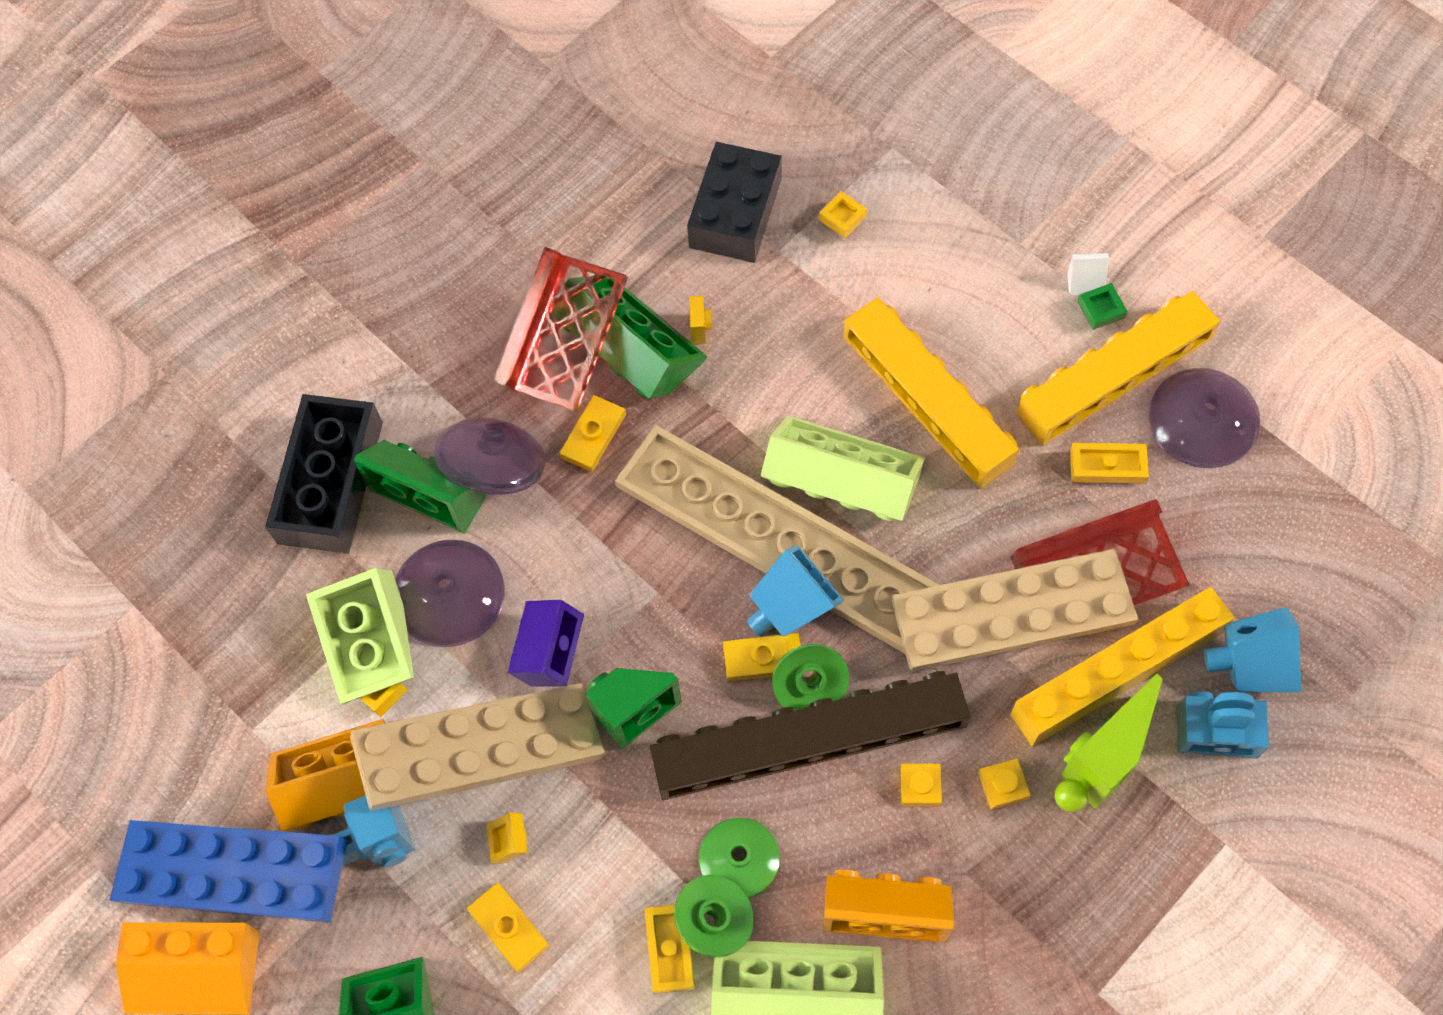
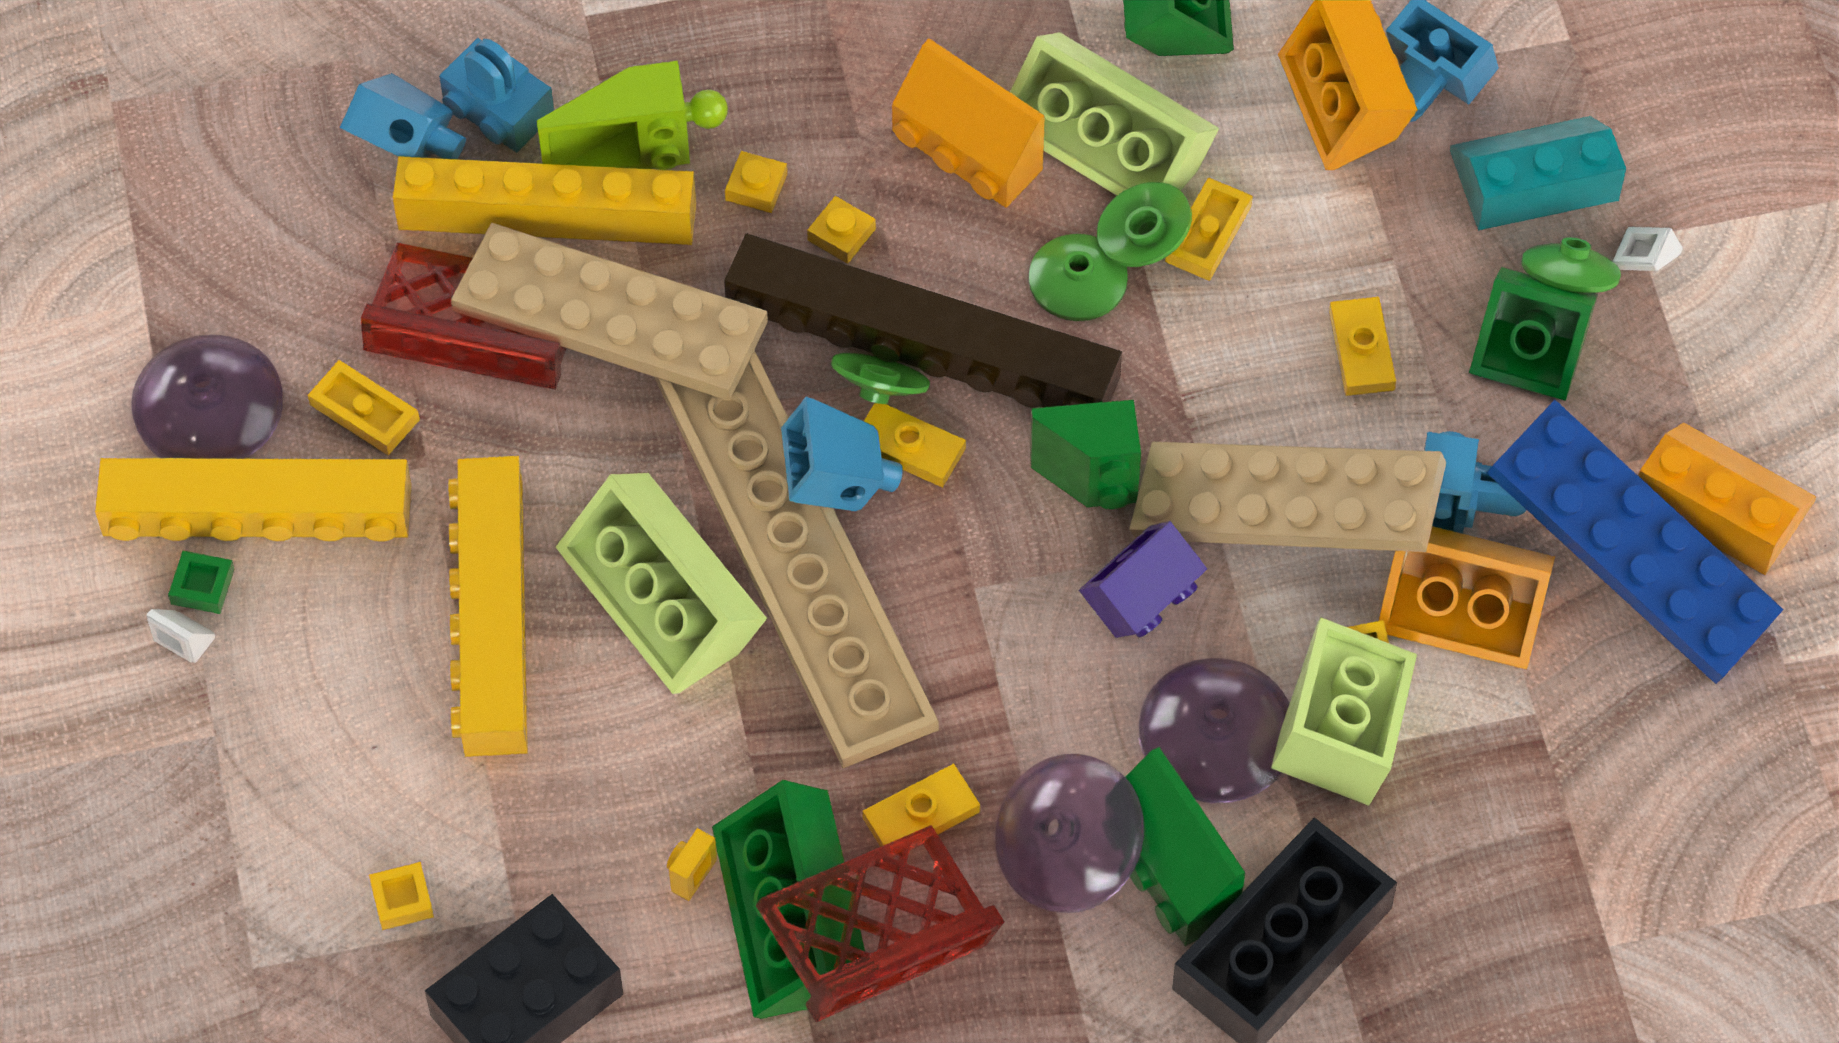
camera: 150 degrees left, 5 degrees down
(506, 838) = (1312, 417): yellow plate -> none

